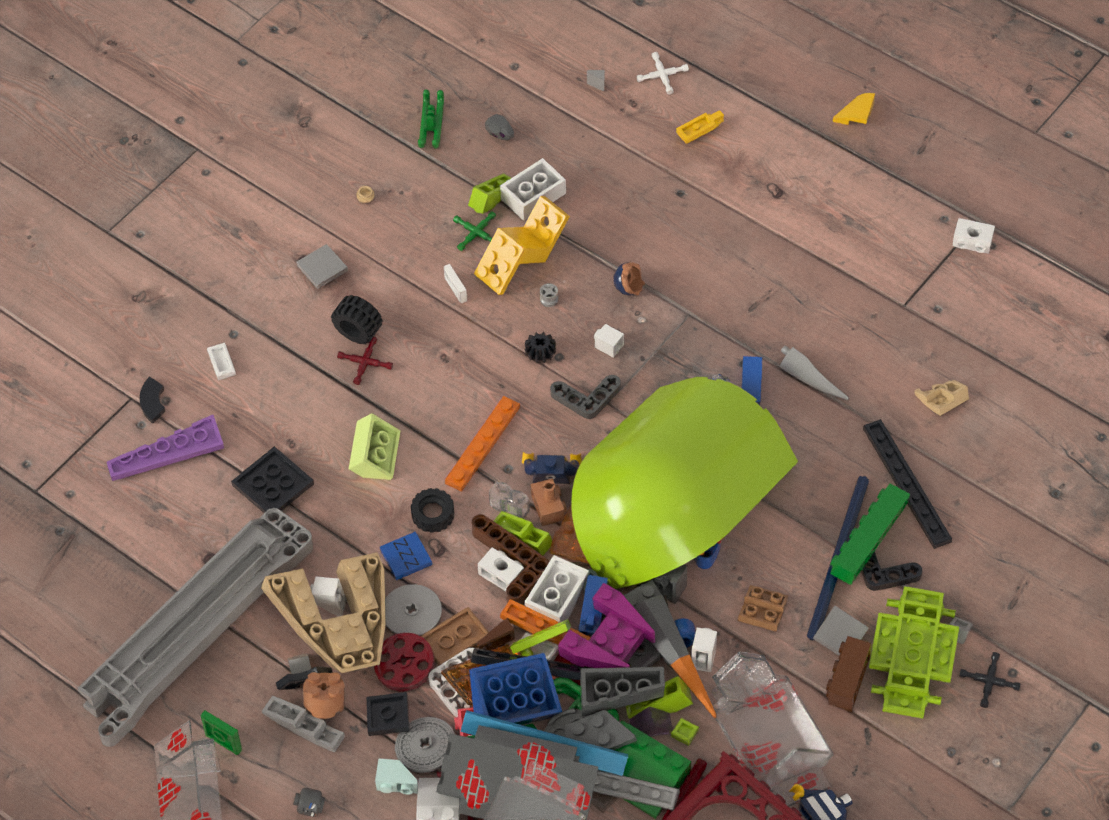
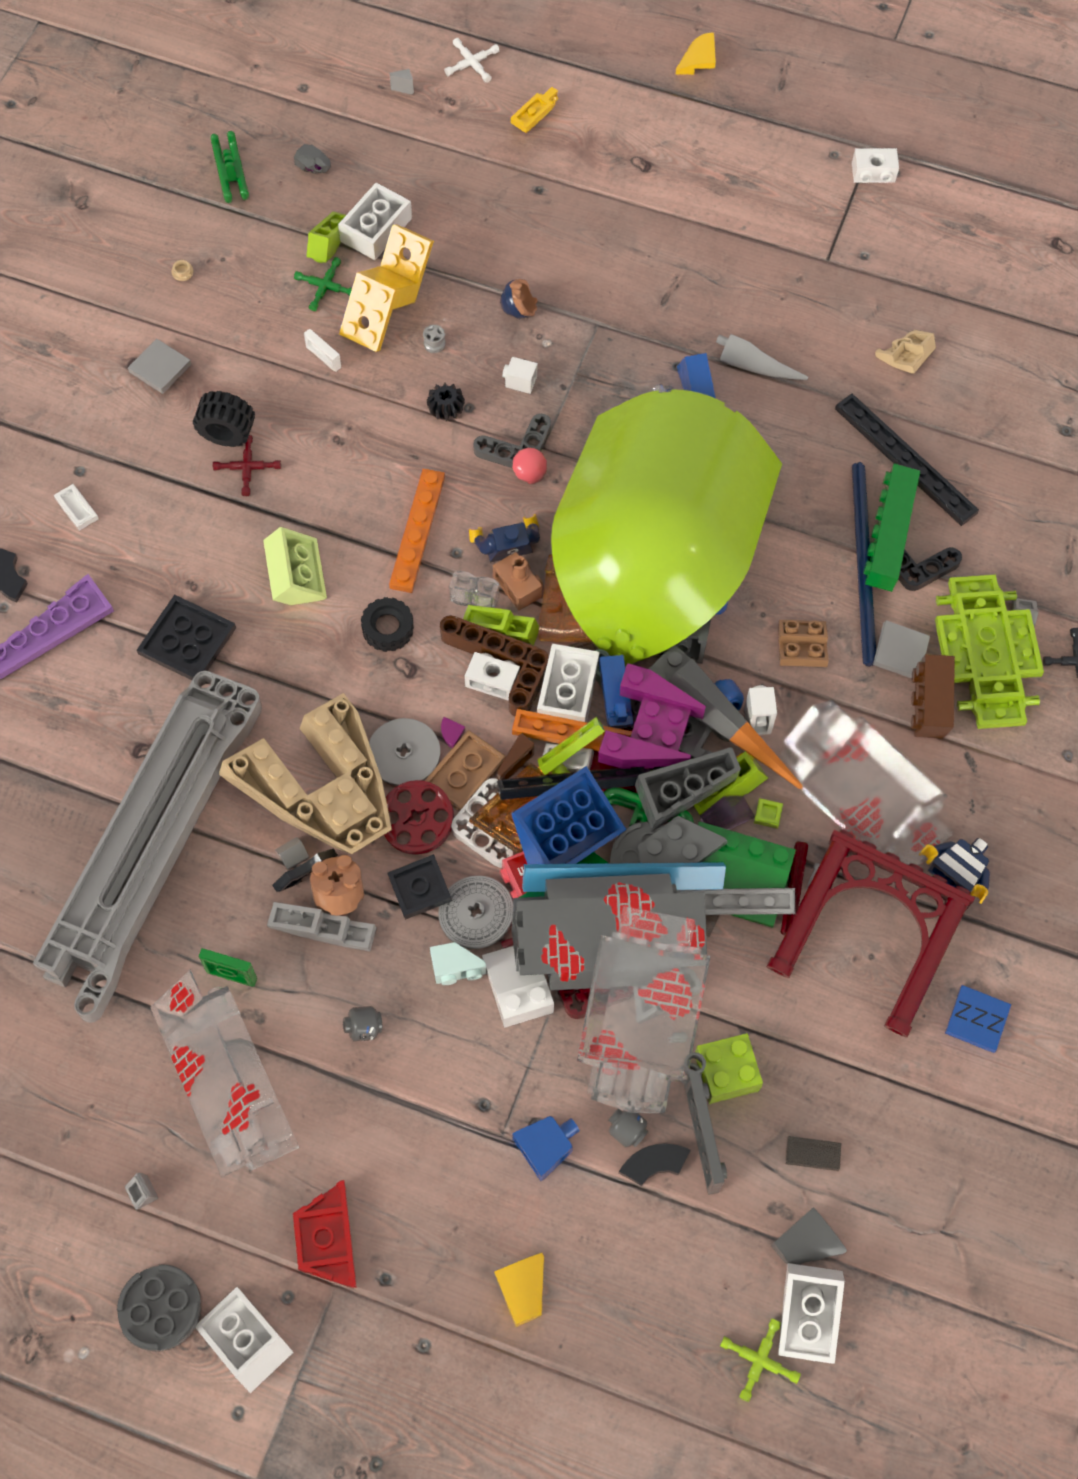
camera: 20 degrees left, 10 degrees up
(329, 595) = (302, 759): white slope -> none
(405, 555) = (374, 687): blue tile -> none
(454, 604) = (451, 731): none -> magenta tile
(590, 414) = (529, 465): none -> coral hair

